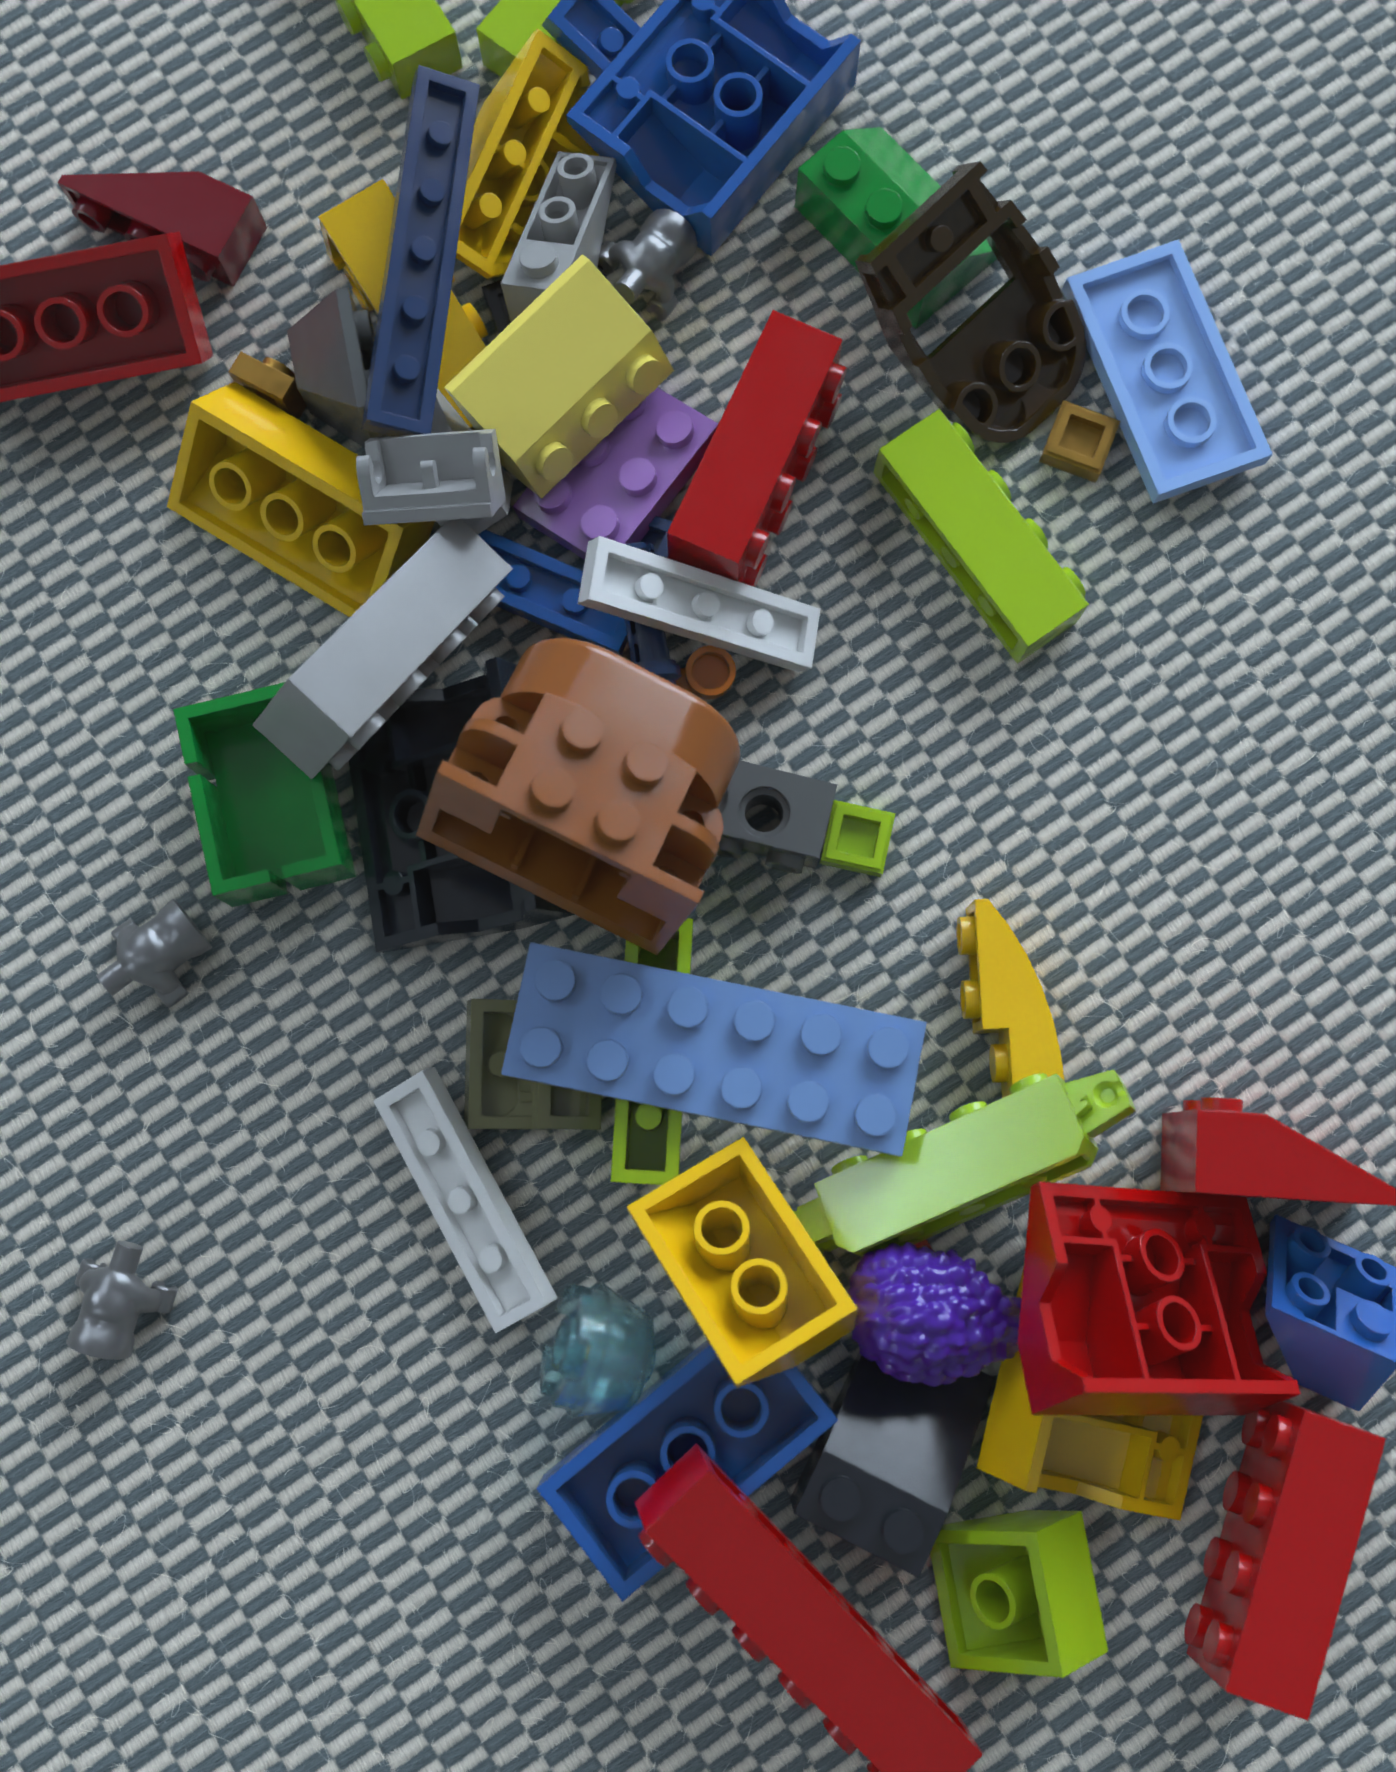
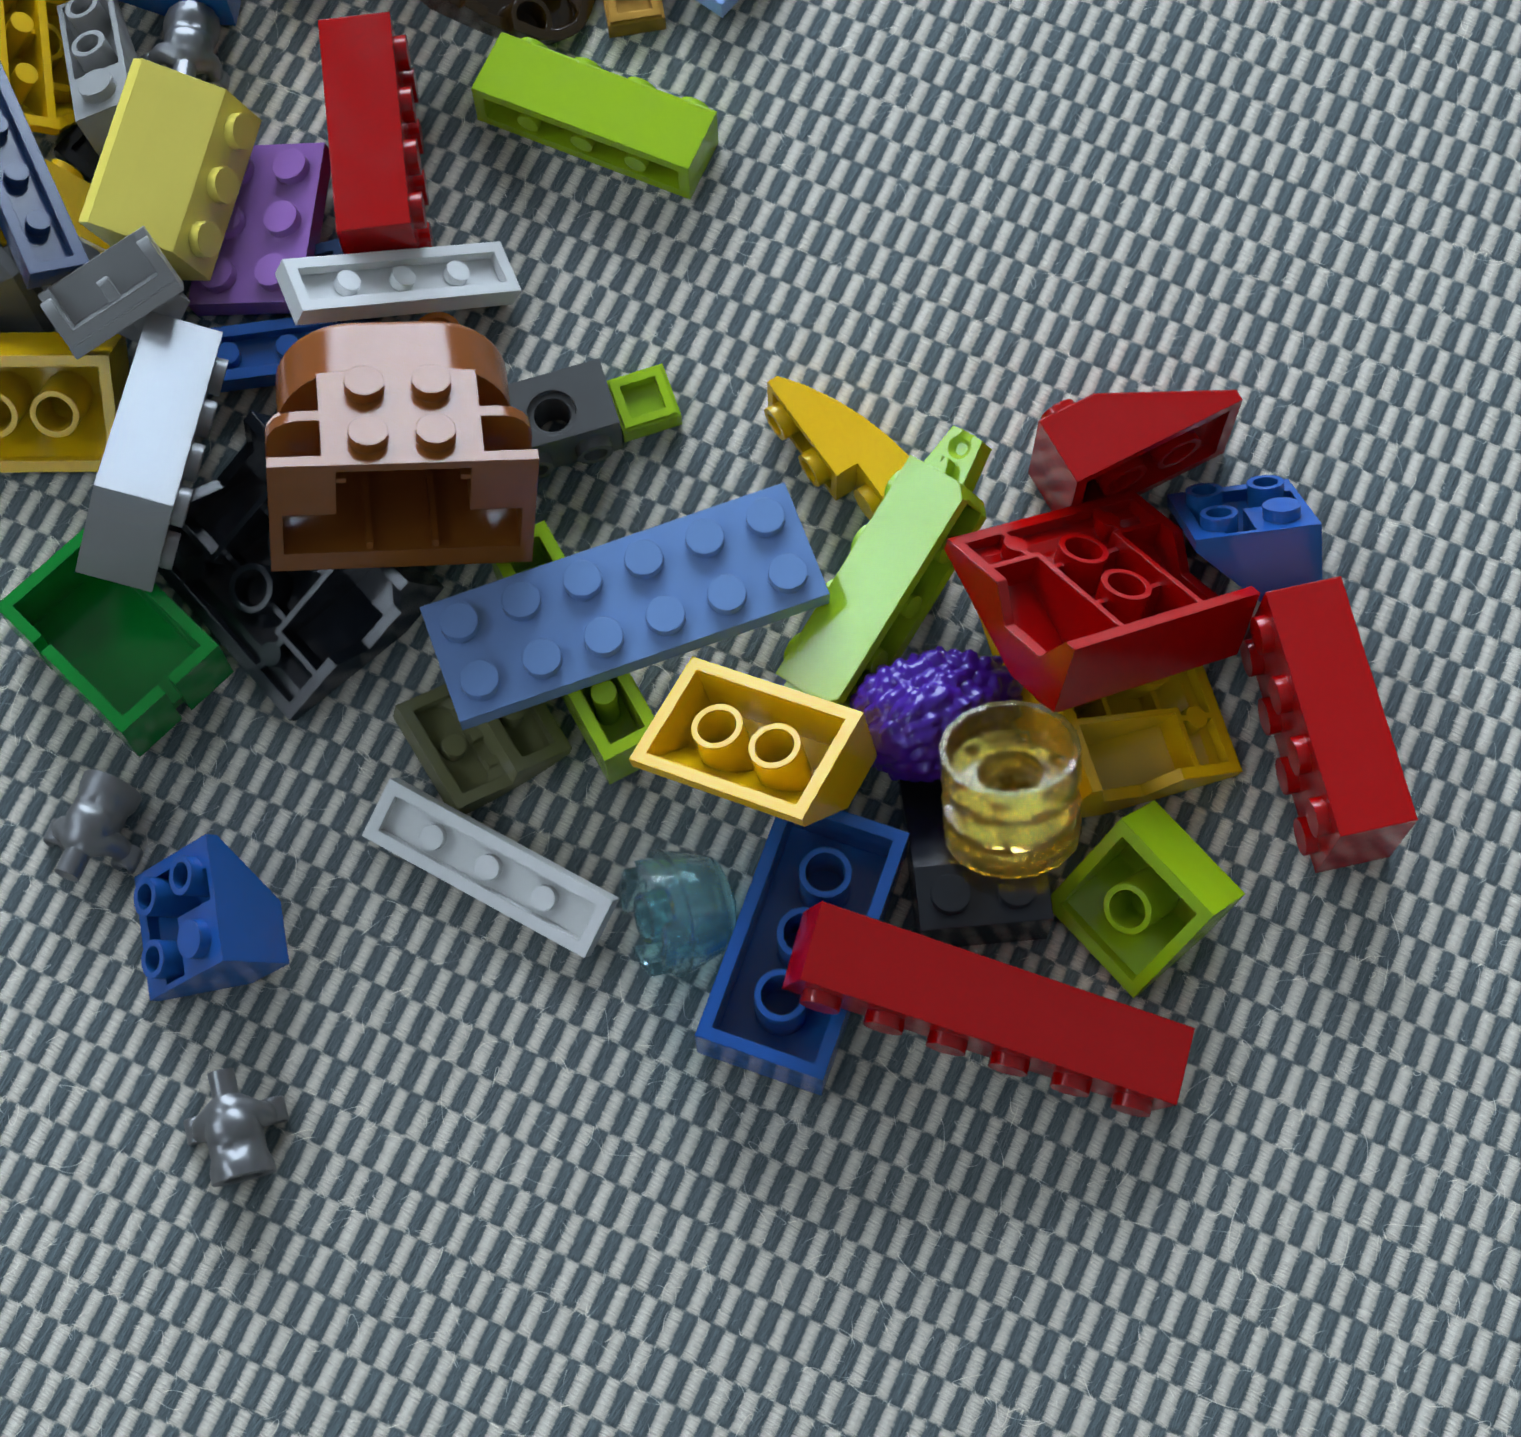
camera: 30 degrees left, 10 degrees down
(196, 1102) = (206, 922): none -> blue slope
(952, 1452) = (1011, 789): none -> clear yellow wheel

